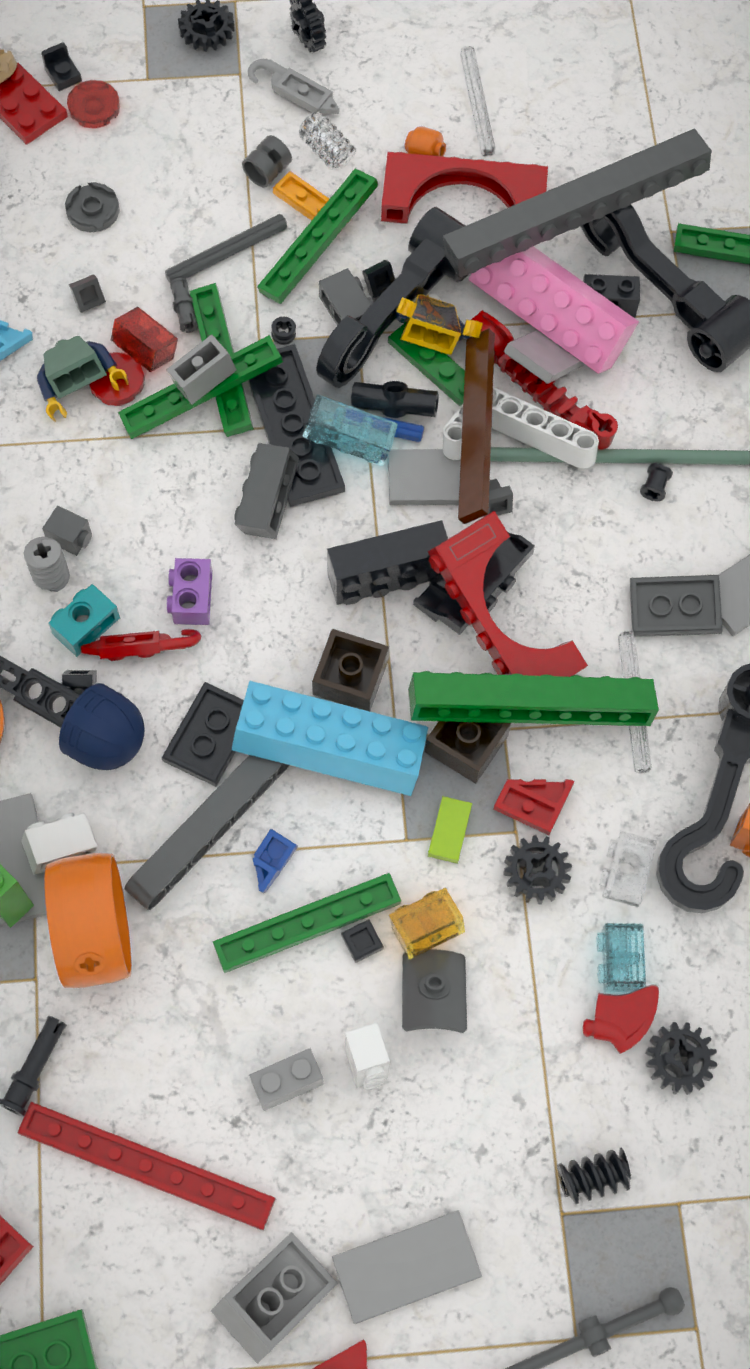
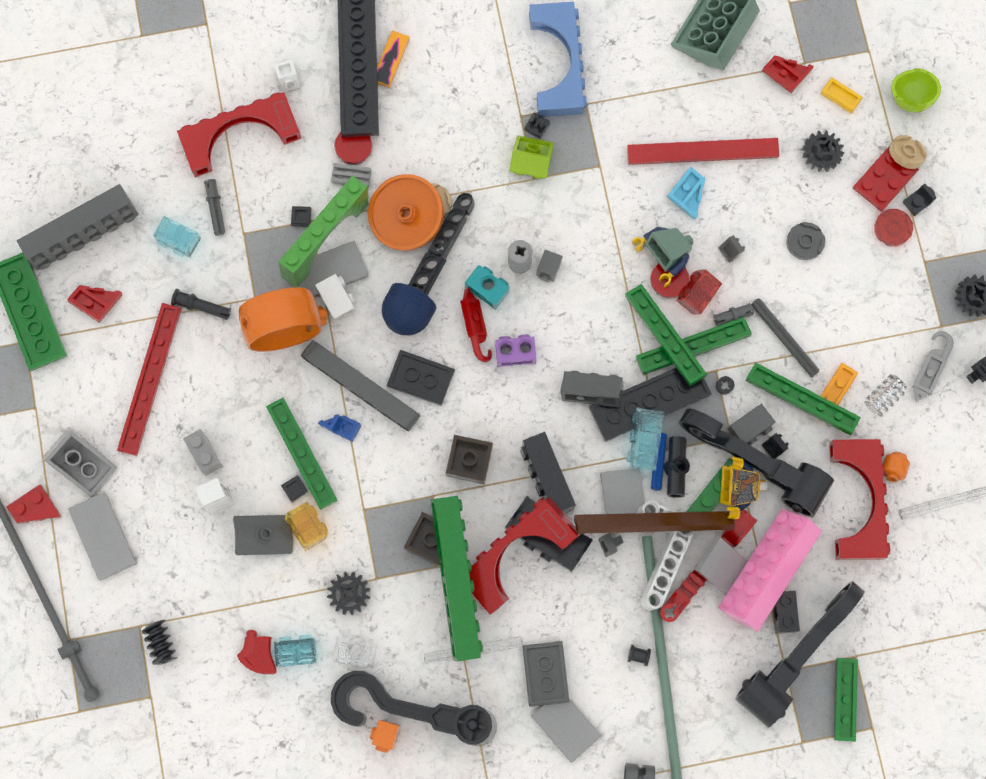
camera: 85 degrees right, 10 degrees up
(79, 679) = (446, 290): black tile -> none
(201, 369) = (669, 331): light grey brick -> none
(267, 161) = (854, 351): dark grey wheel -> none
(330, 738) = (418, 450): medium azure brick -> none
(450, 829) = (372, 536): lime tile -> none
(534, 802) = (395, 588): red wing -> none
(577, 202) = (837, 576): dark grey brick -> none
(683, 1072) = (233, 683): black gear -> none

